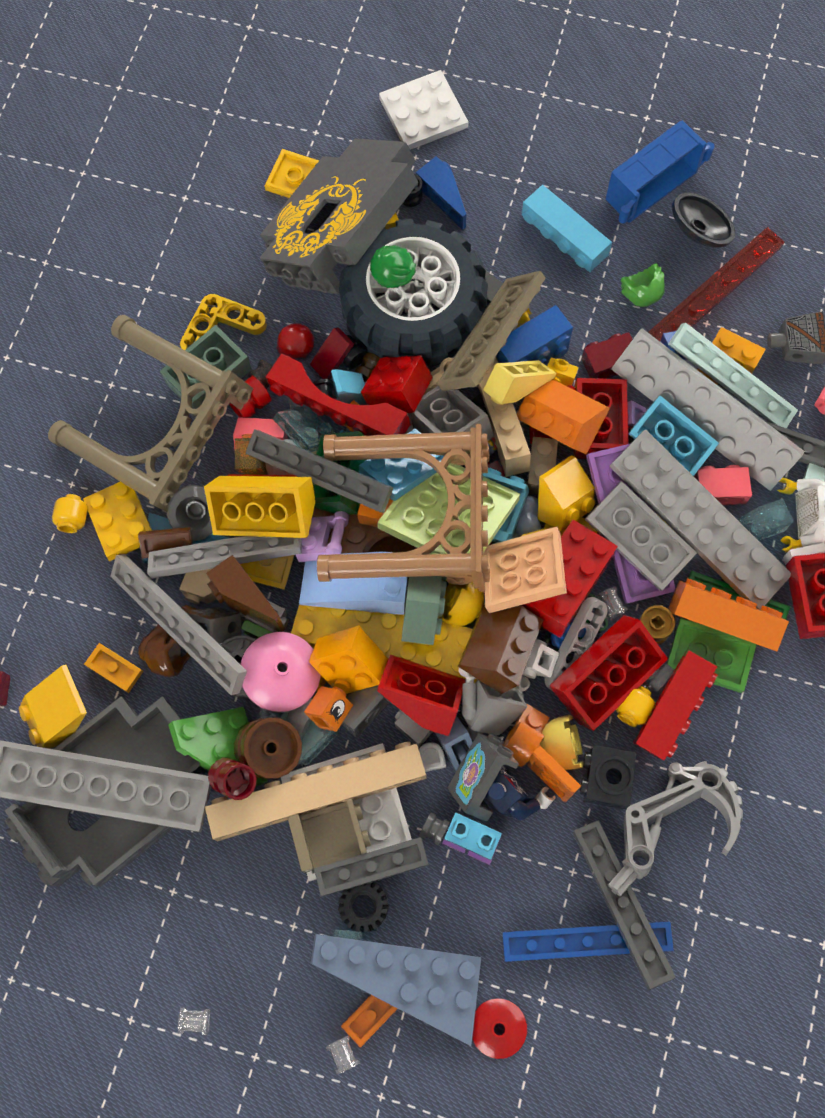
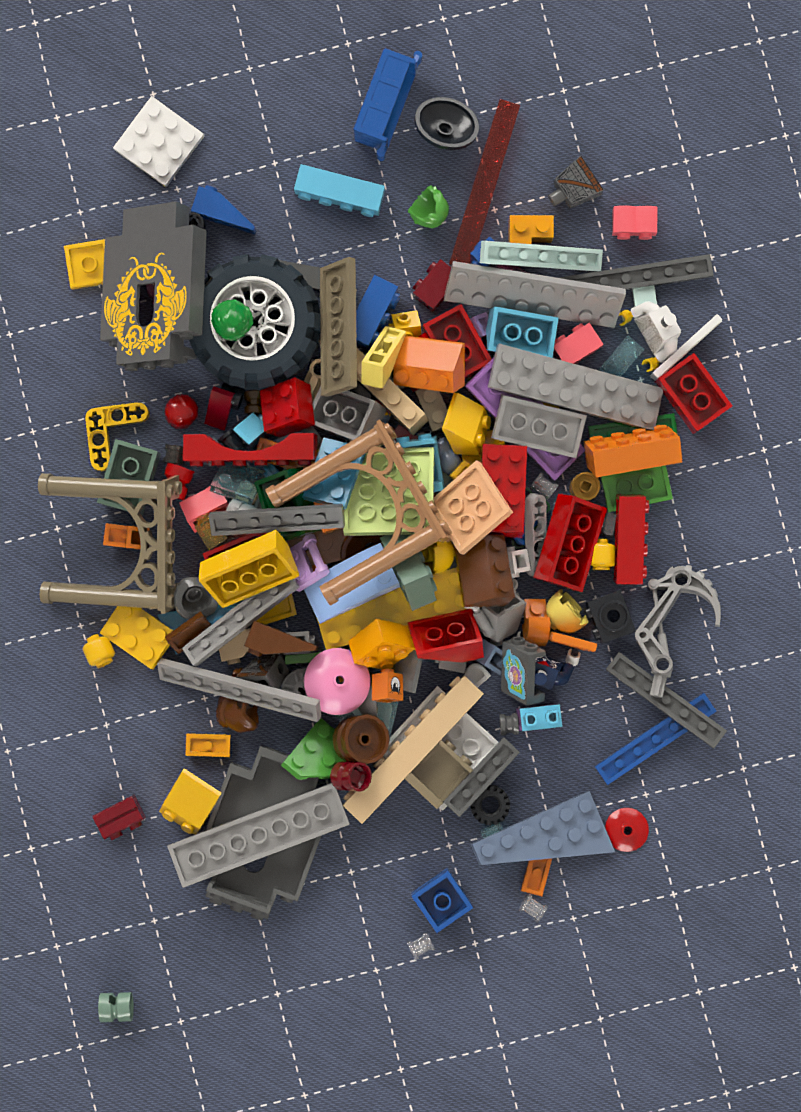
camera: 30 degrees left, 15 degrees up
(160, 417) = (122, 536): none -> orange brick
(247, 981) = (442, 900): none -> blue brick

